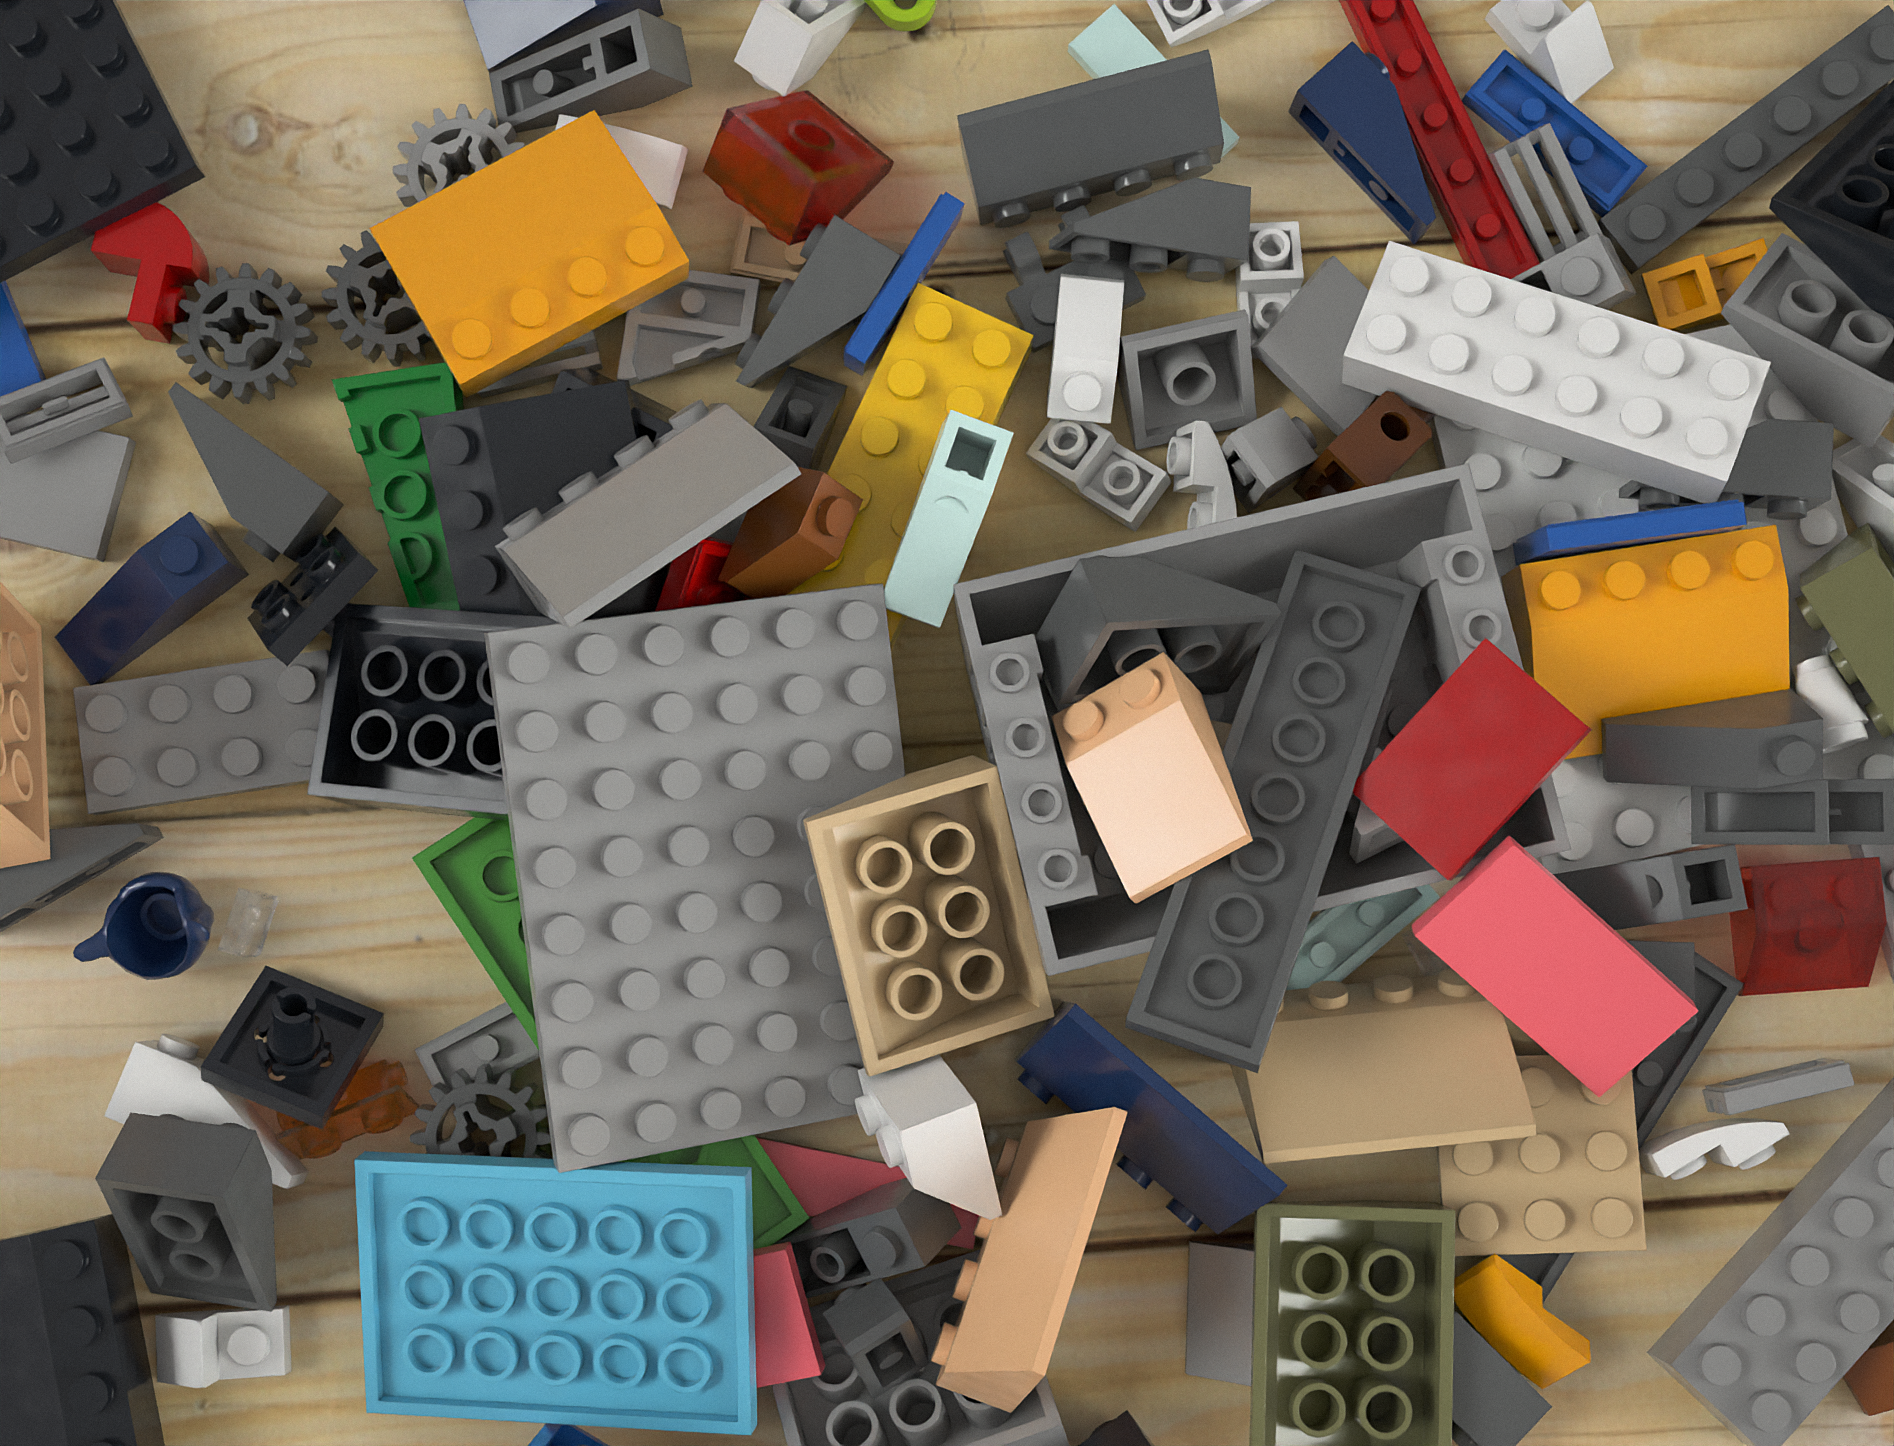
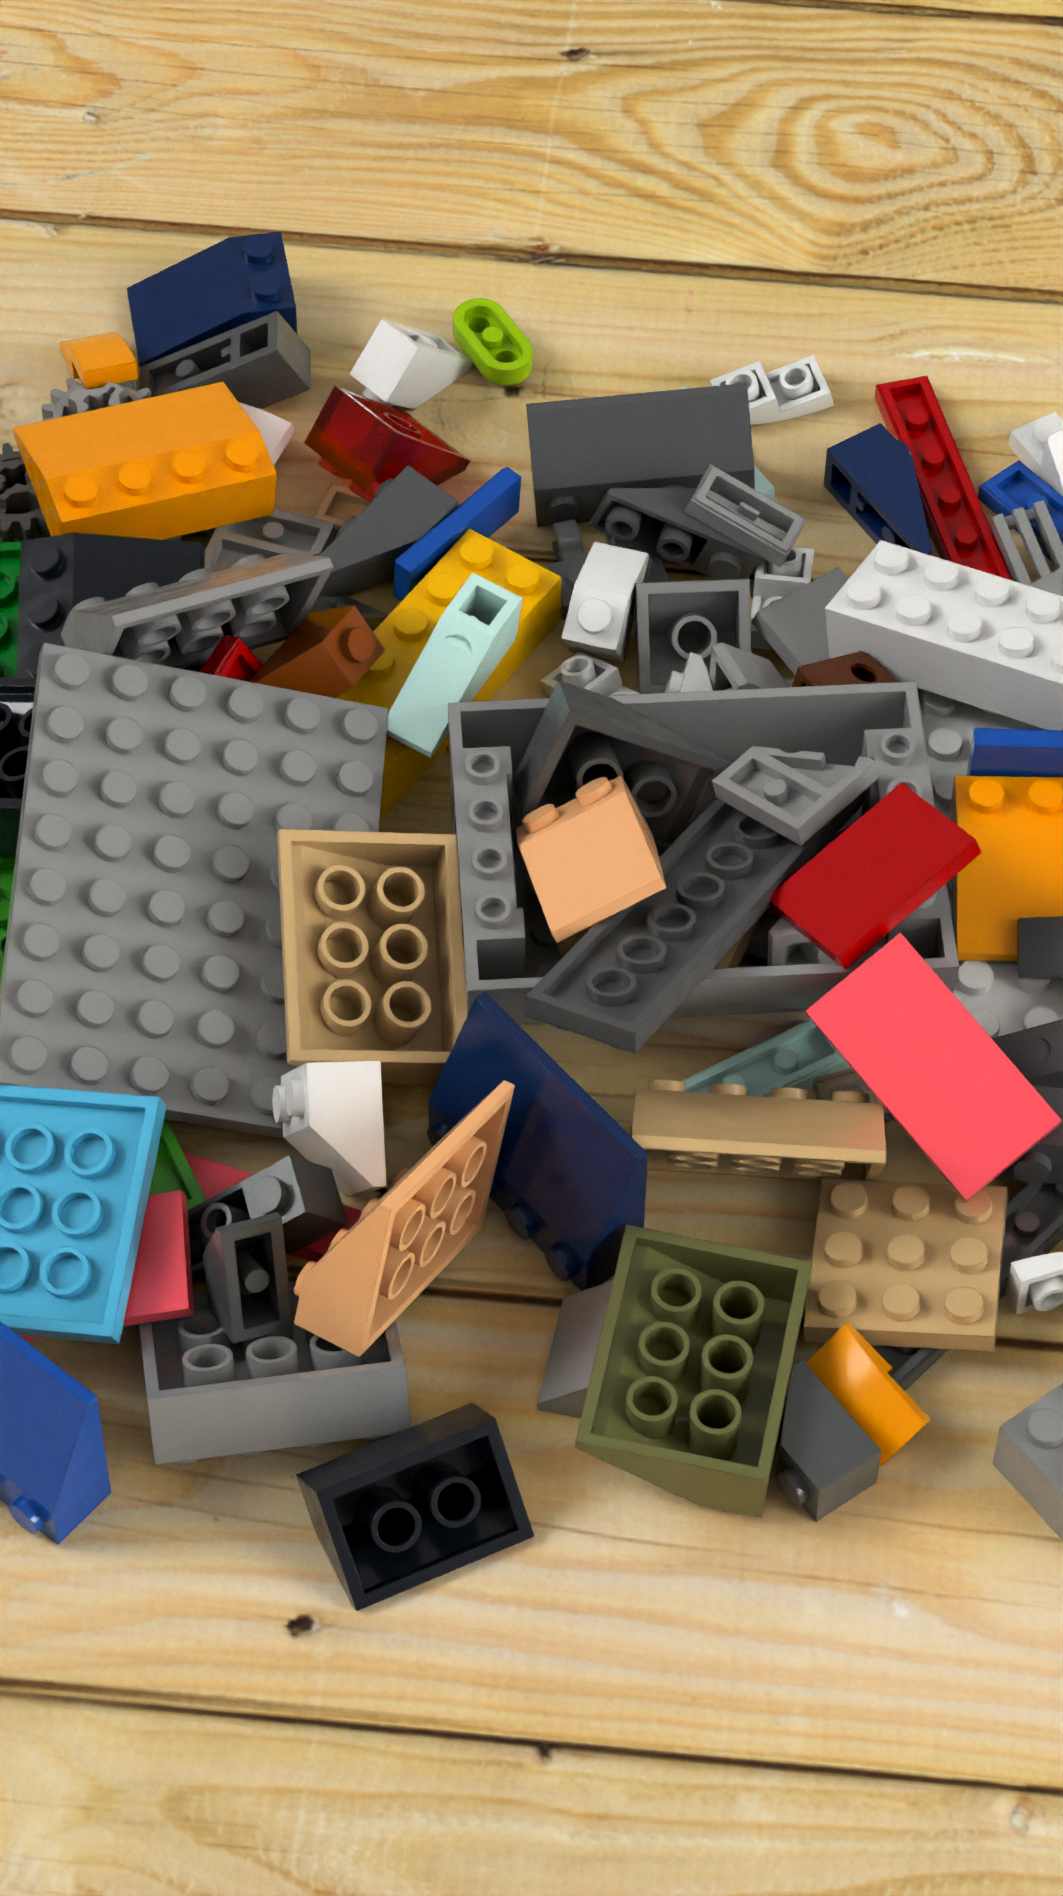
camera: 15 degrees right, 30 degrees down
(441, 83) = (99, 359): none -> light orange slope
(1212, 234) = (743, 521): none -> light grey tile
(1355, 640) = (792, 790): none -> light grey wing

